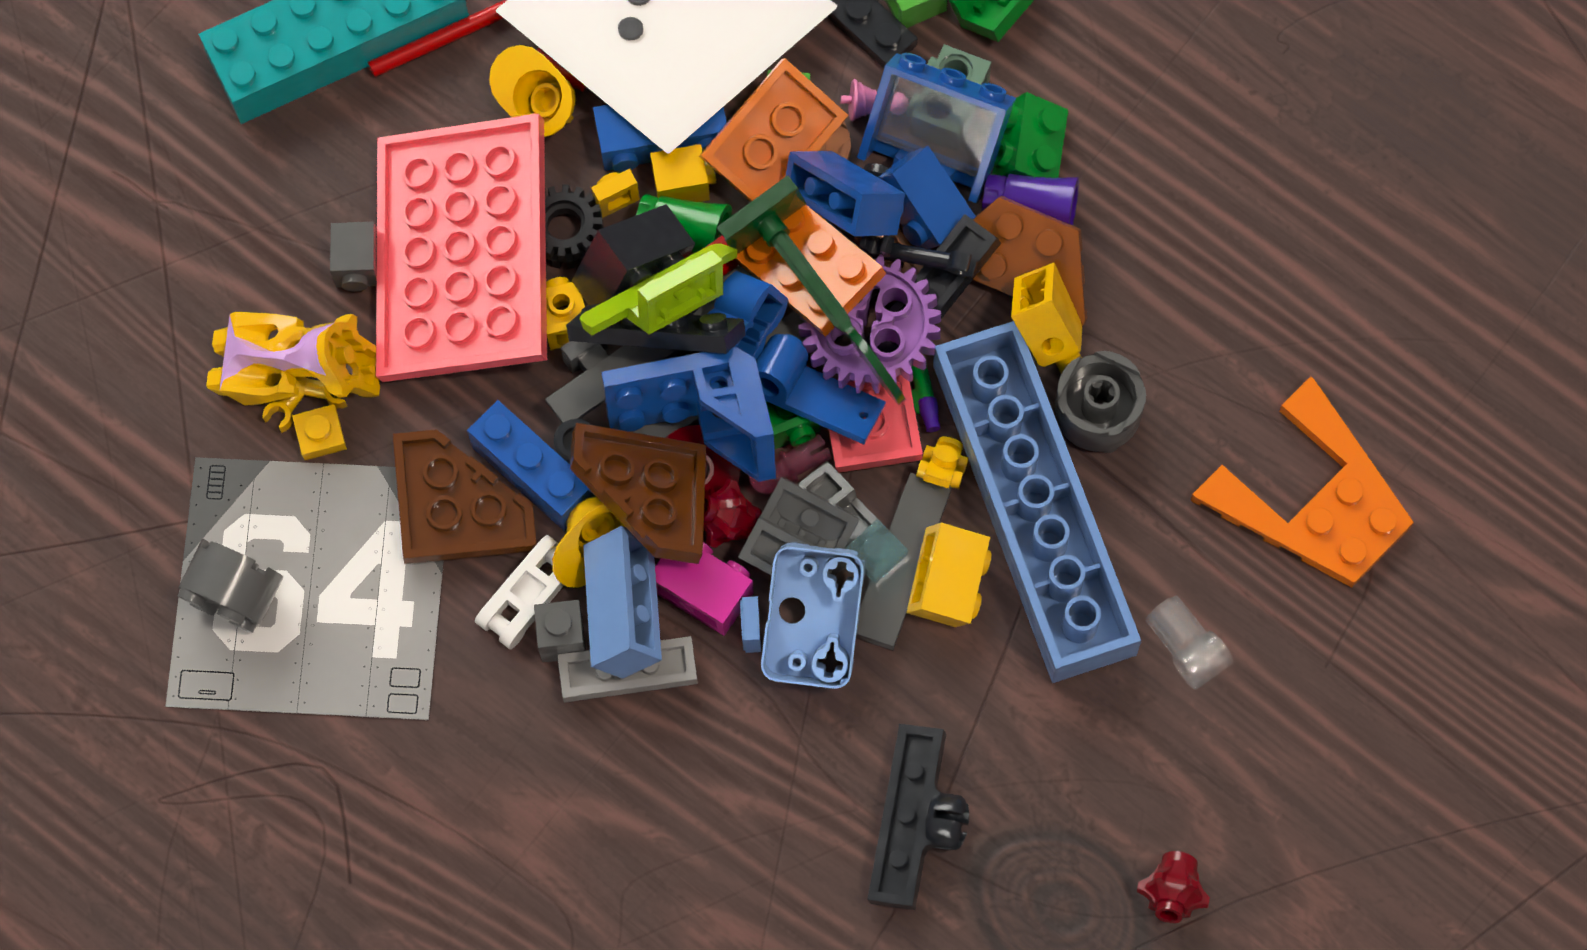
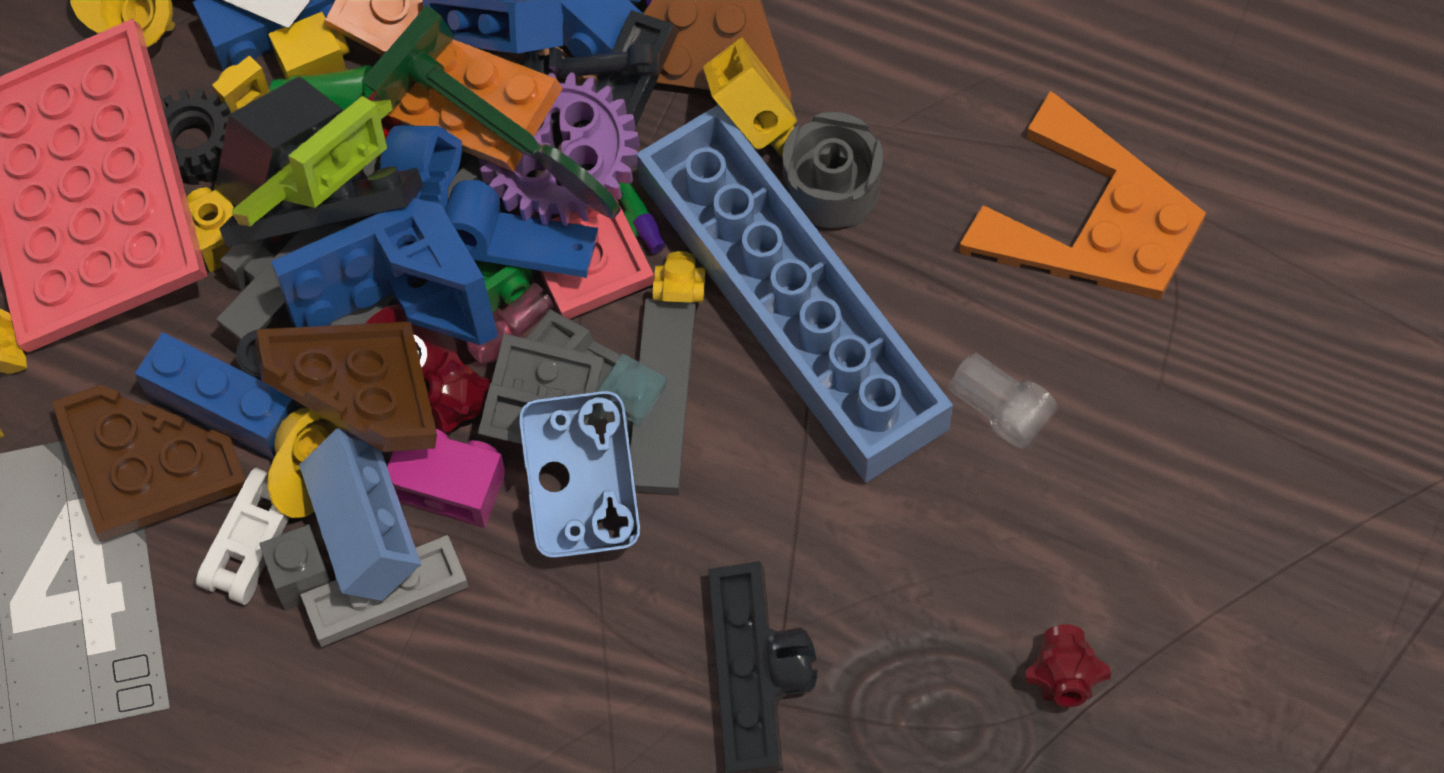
camera: 15 degrees left, 5 degrees down
(750, 624) = (511, 505): medium blue tile -> none
(949, 575) = (719, 394): yellow brick -> none

